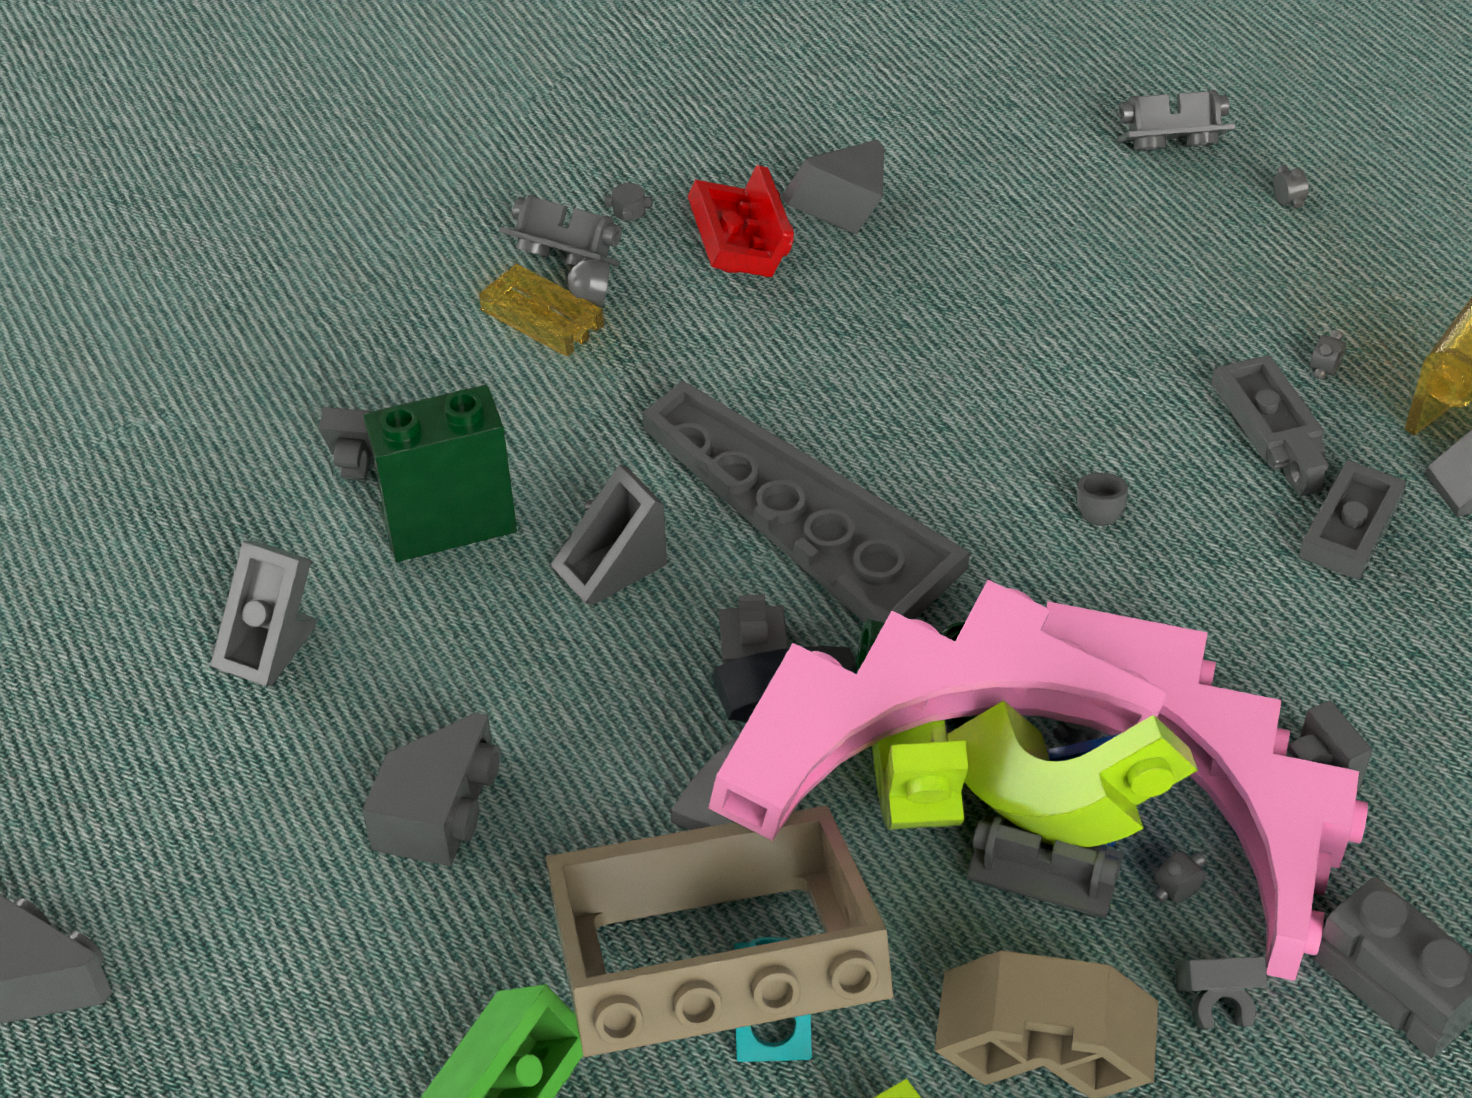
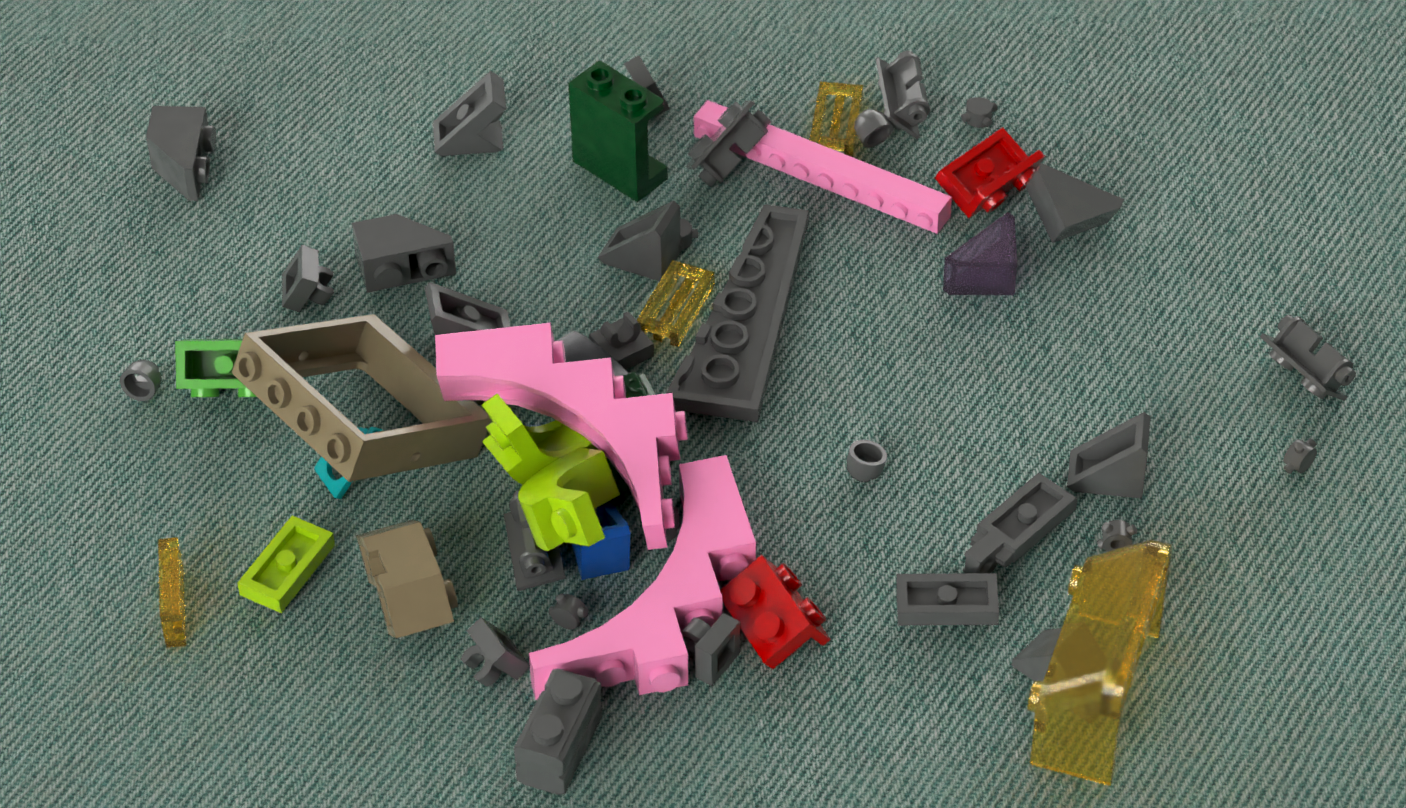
camera: 60 degrees right, 0 degrees up
(394, 920) = (305, 280): none -> dark grey tile
(515, 378) = (737, 128): none -> dark grey hinge
(618, 776) = (461, 313): none -> dark grey slope
(623, 341) = (838, 173): none -> bright pink piece
(711, 568) = (653, 306): none -> clear yellow tile
(870, 274) = (984, 262): none -> clear purple slope
(1231, 302) = (1112, 461): none -> dark grey slope
(1298, 669) = (773, 611): none -> red bracket

